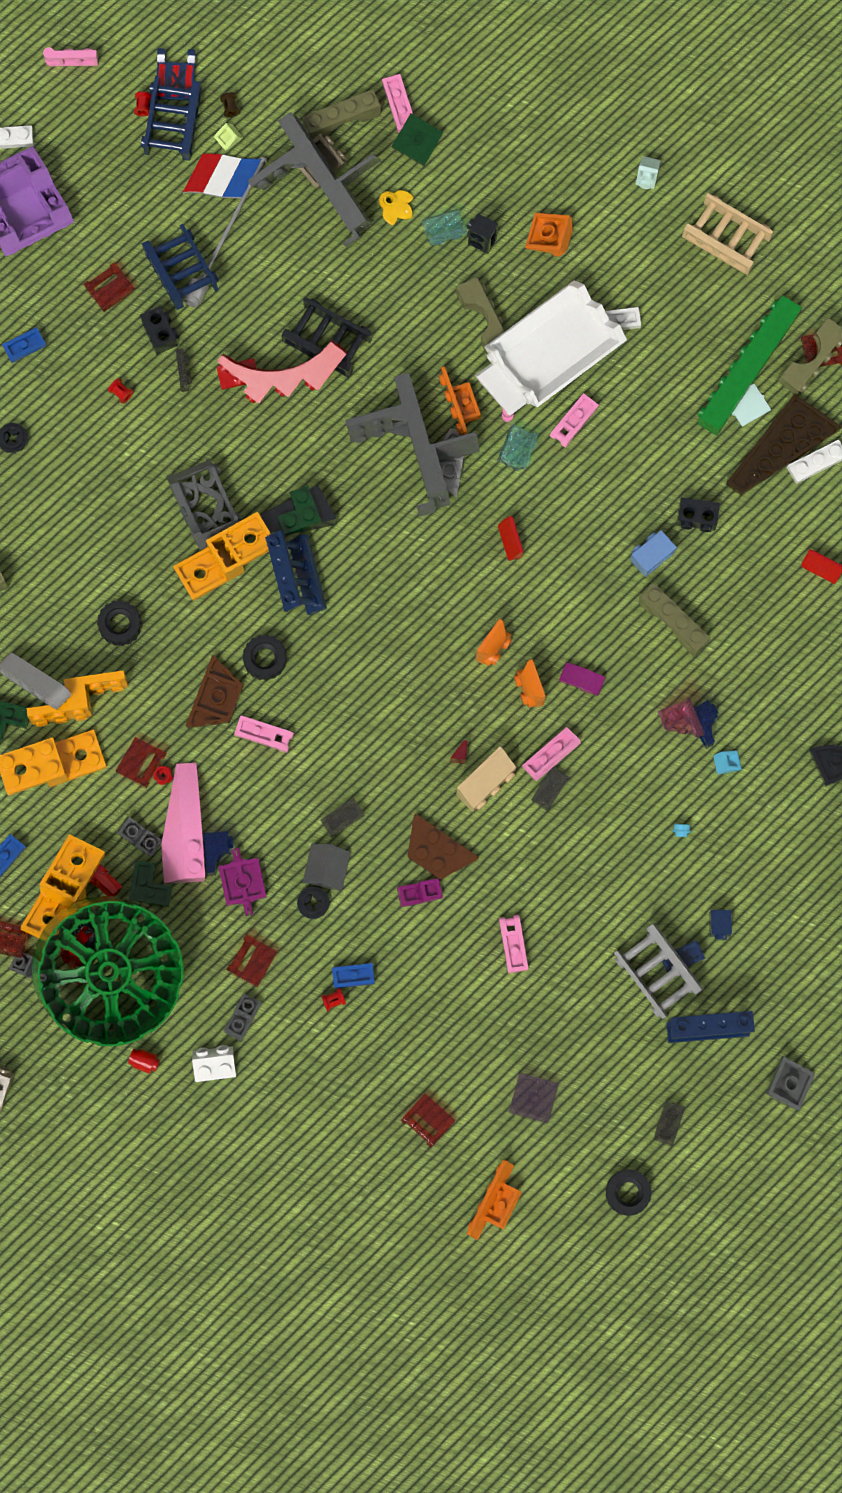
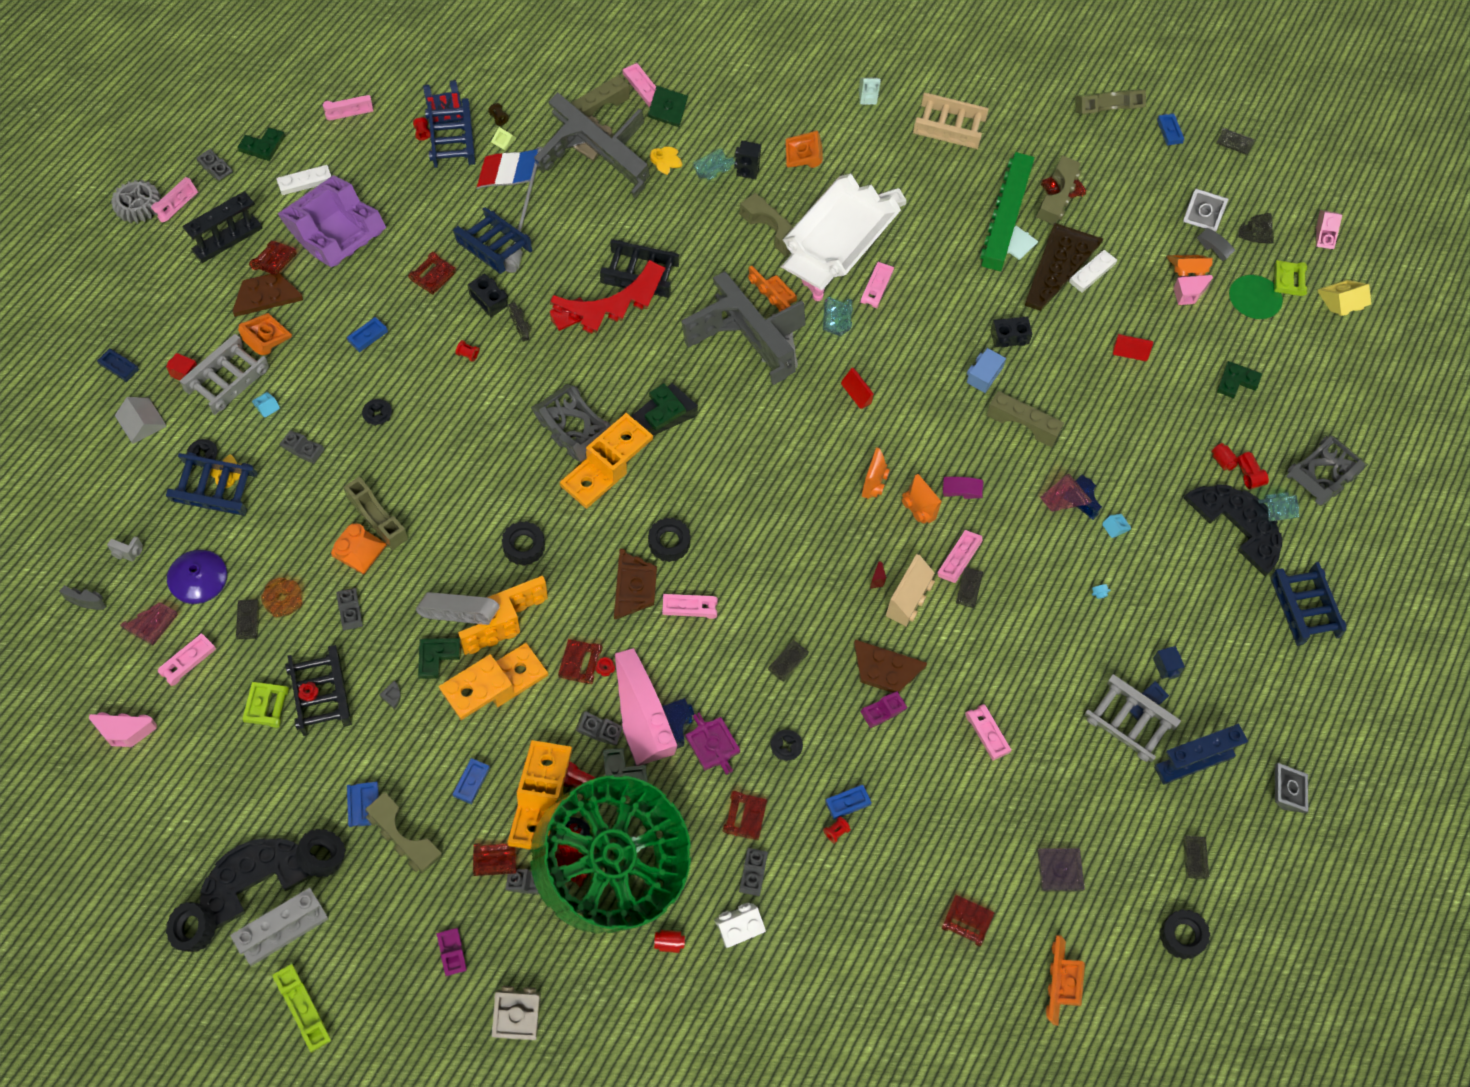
camera: 20 degrees left, 15 degrees down
(306, 572) = (677, 457): dark blue fence -> none
(326, 866) = (787, 708): dark grey slope -> none

